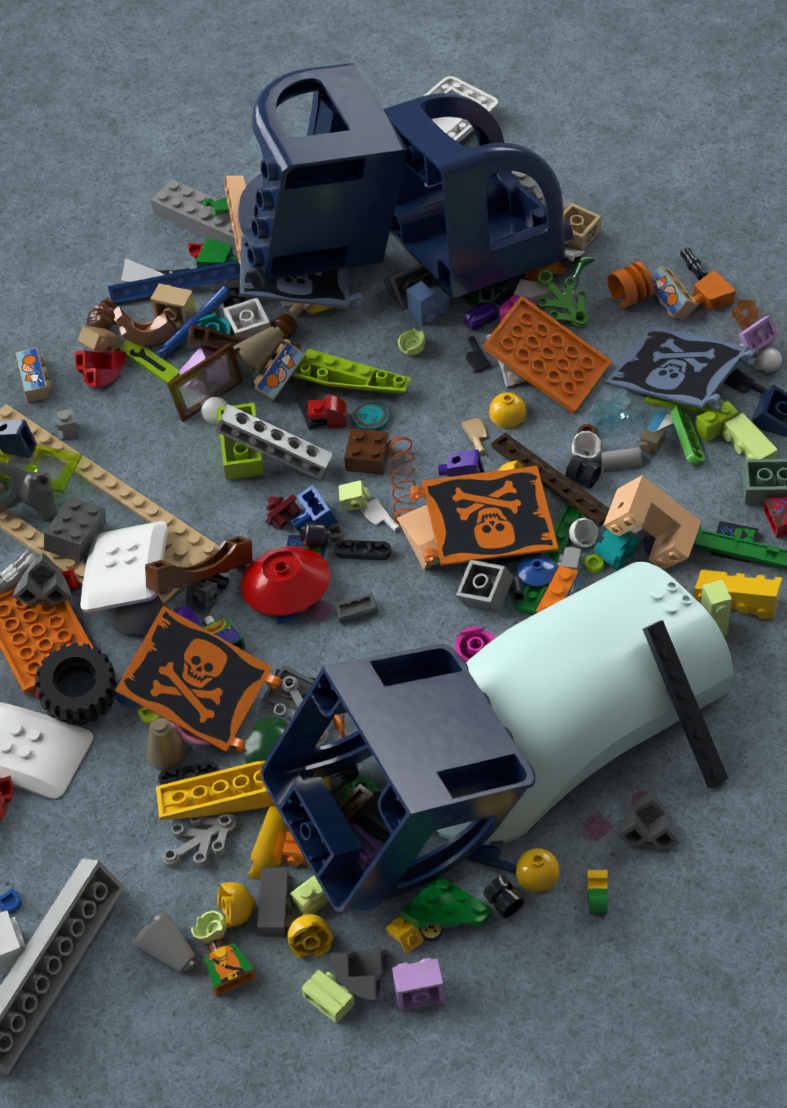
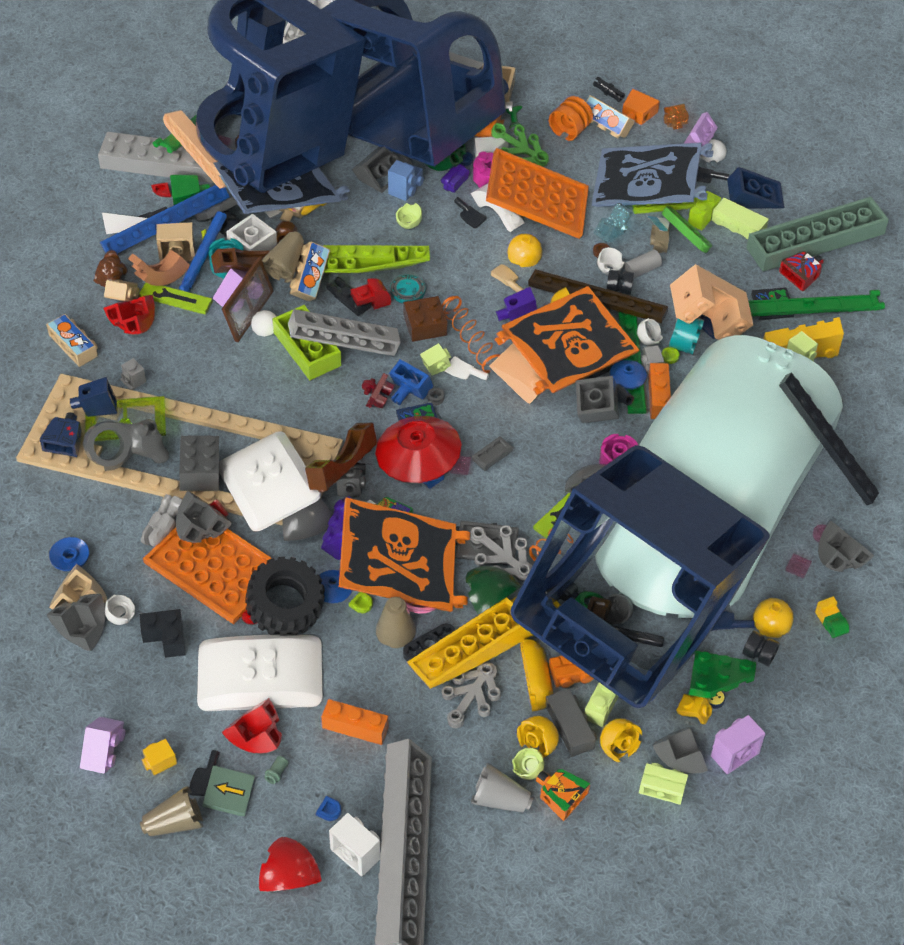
camera: 30 degrees left, 0 degrees up
(75, 827) = (355, 721): none -> orange brick
(314, 534) = (422, 402): black head -> none
(357, 544) = (453, 402): black beam -> none

